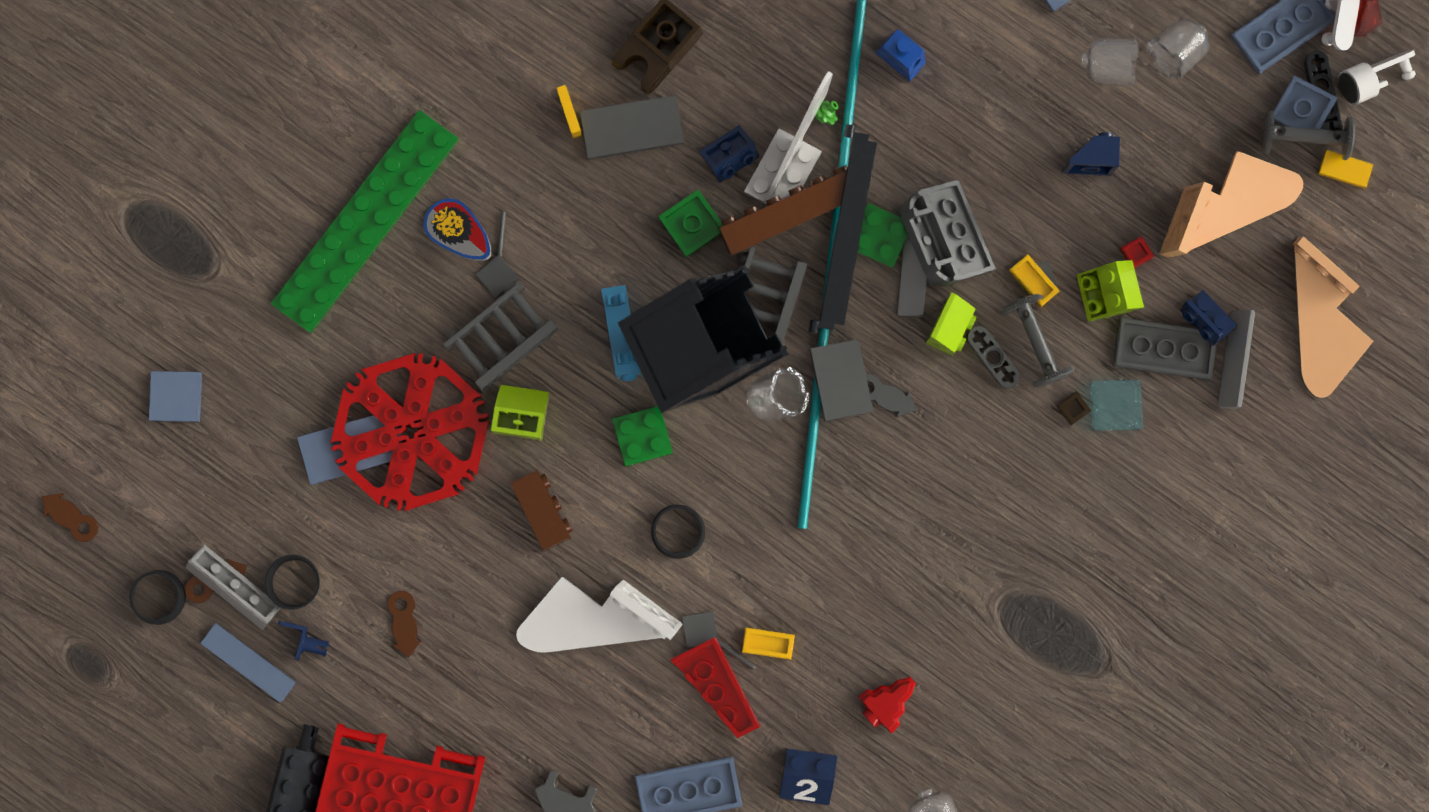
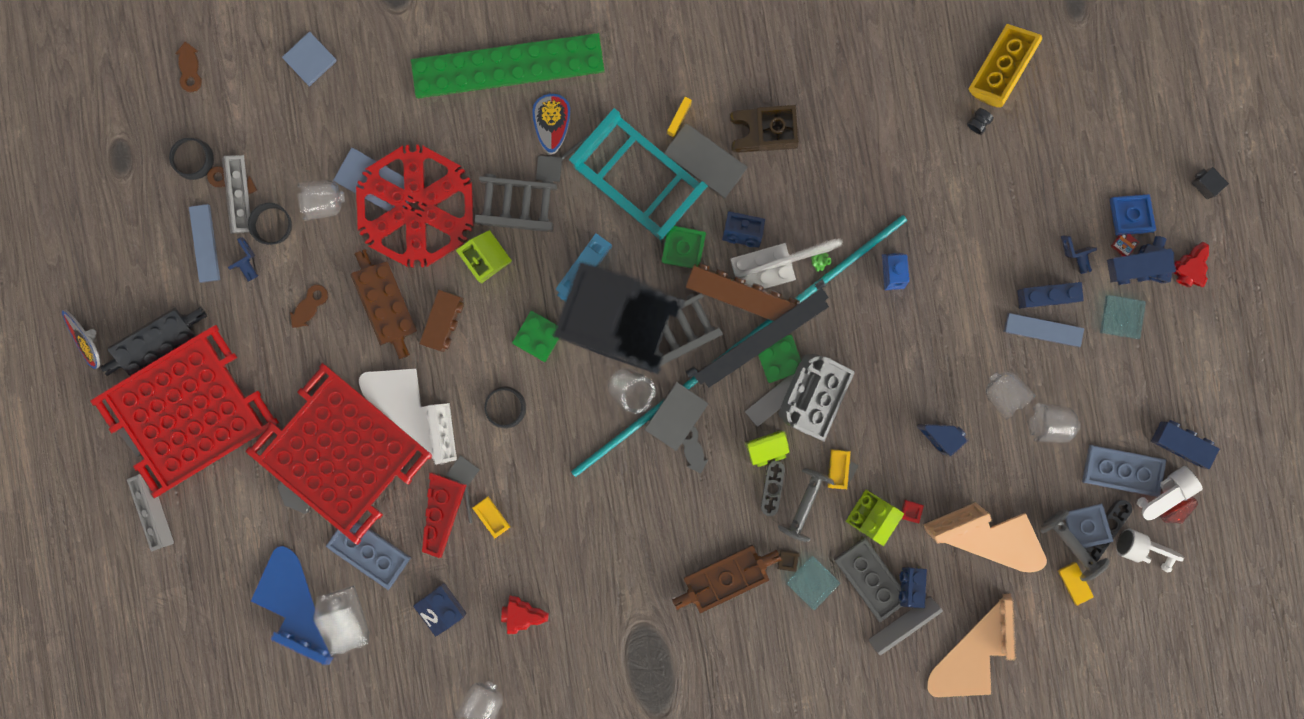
camera: 50 degrees right, 5 degrees up
(318, 511) = (320, 199): none -> clear cylinder
(471, 548) = (383, 303): none -> reddish brown plate
(553, 242) = (597, 137): none -> teal piece
(570, 725) = (339, 453): none -> red plate
(1036, 480) = (726, 579): none -> reddish brown plate

